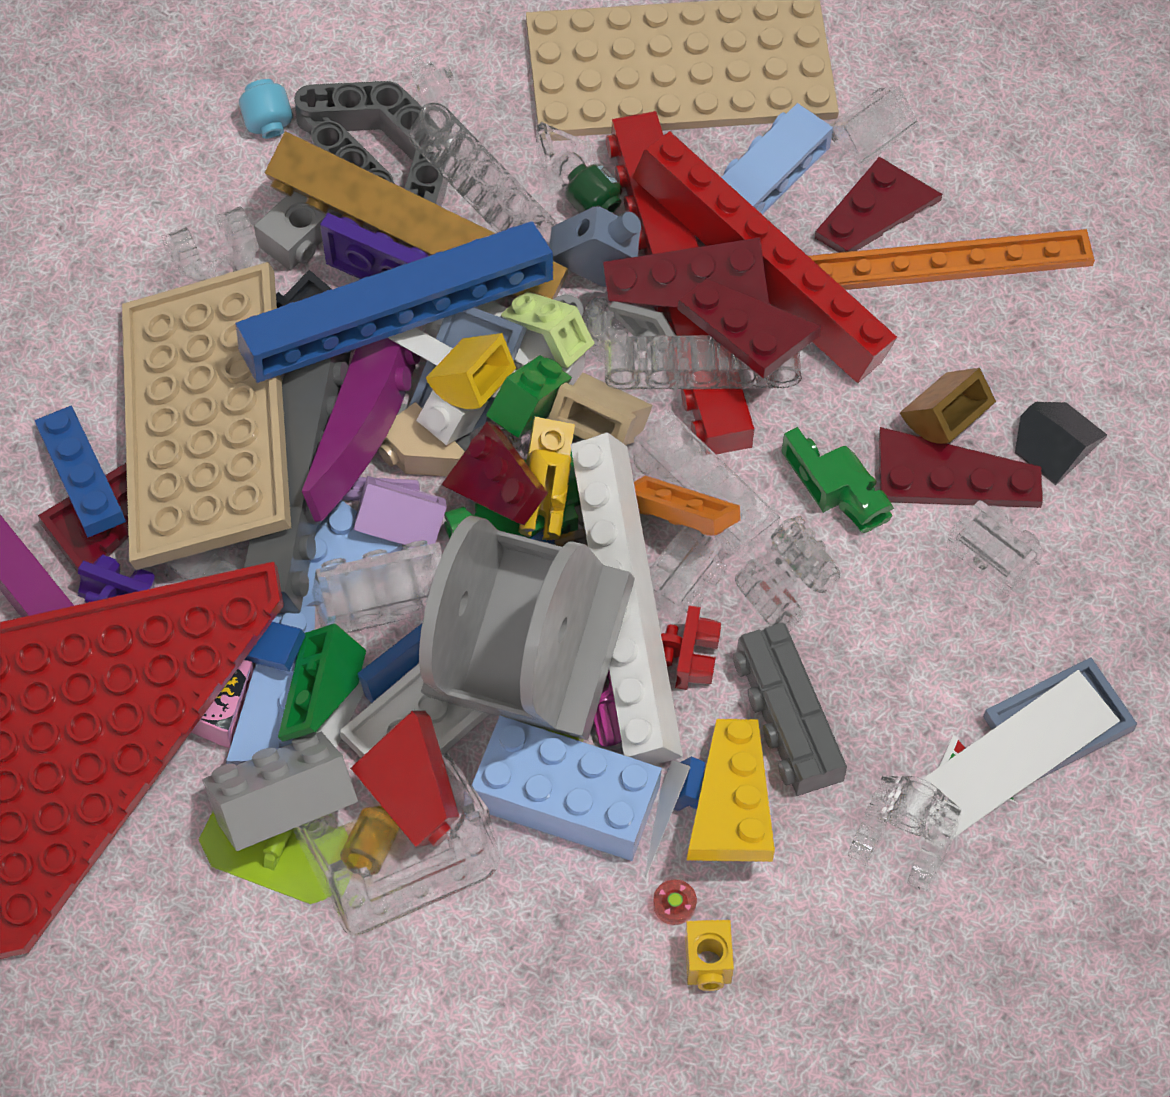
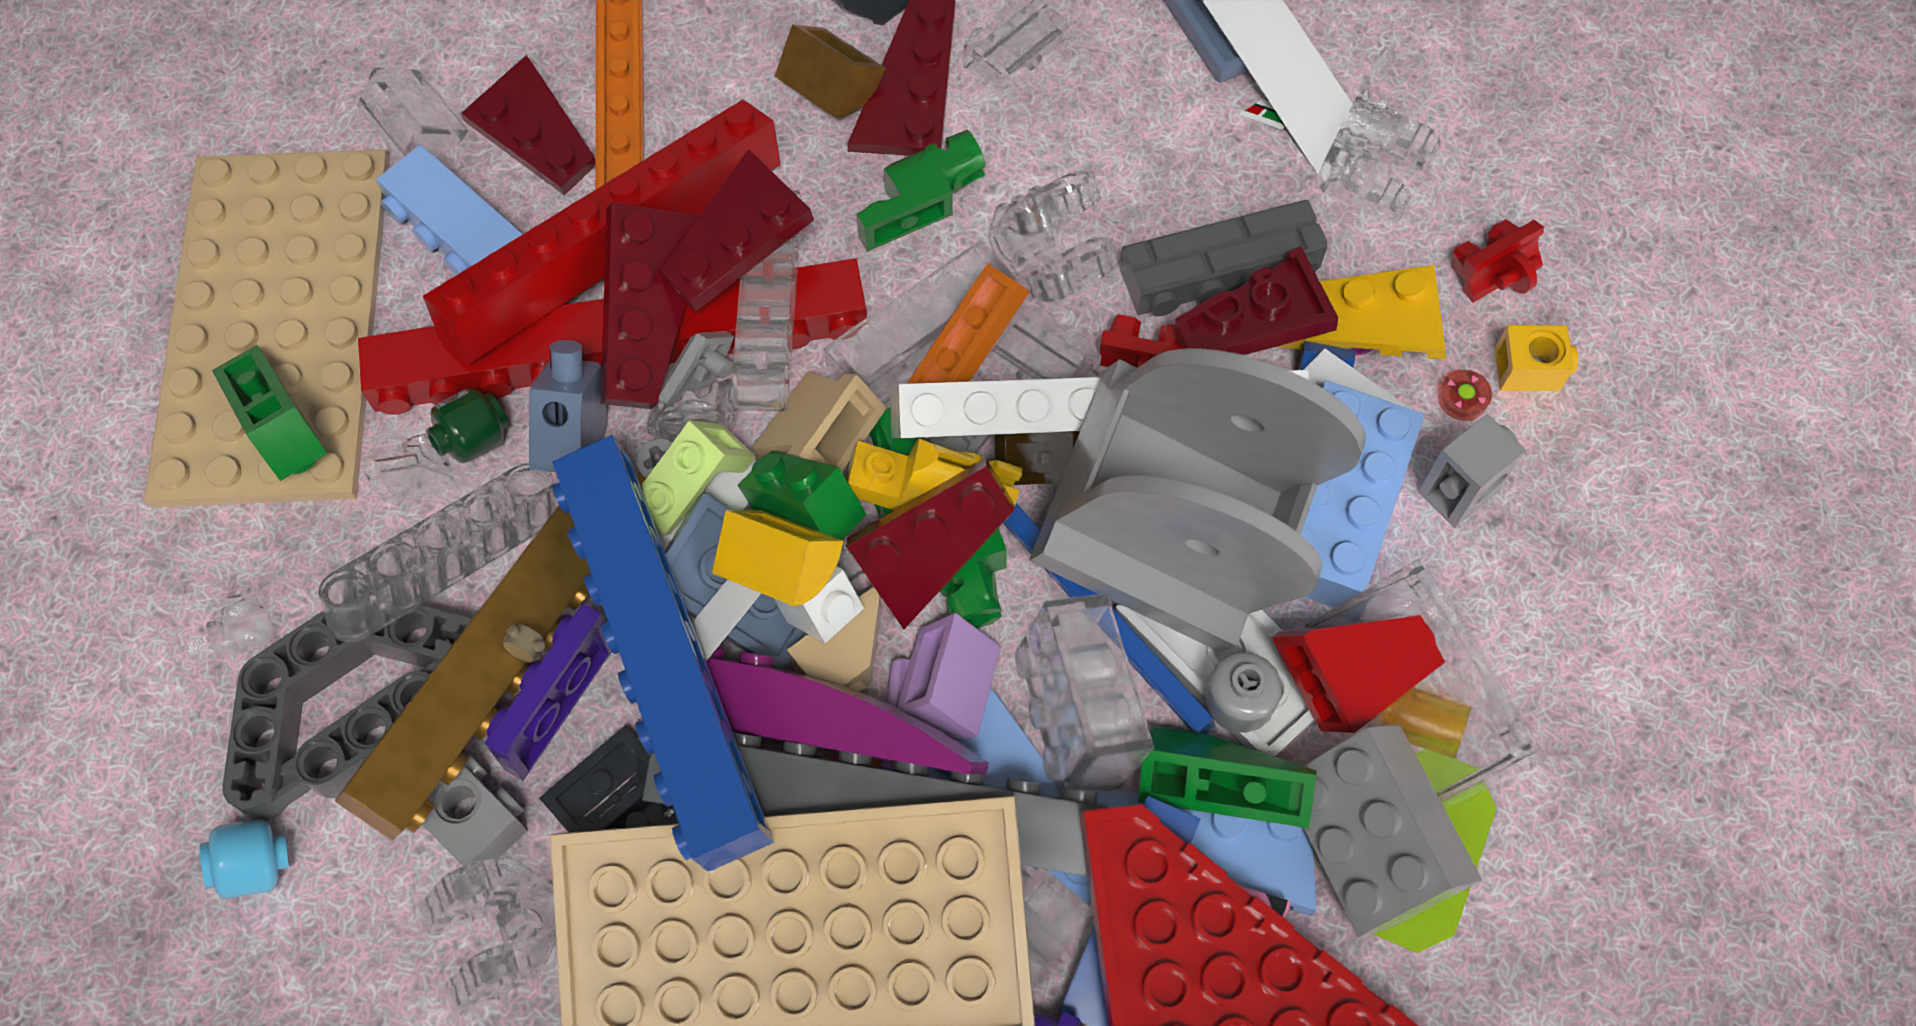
camera: 85 degrees left, 5 degrees up
(384, 696) = (1243, 692): none -> light grey head
(401, 227) = (523, 643): none -> dark tan piece
(585, 65) = (269, 413): none -> green slope
(586, 879) = (1471, 470): none -> light grey brick
(718, 719) = (1262, 314): none -> dark red wing
(806, 937) = (1507, 260): none -> red hips

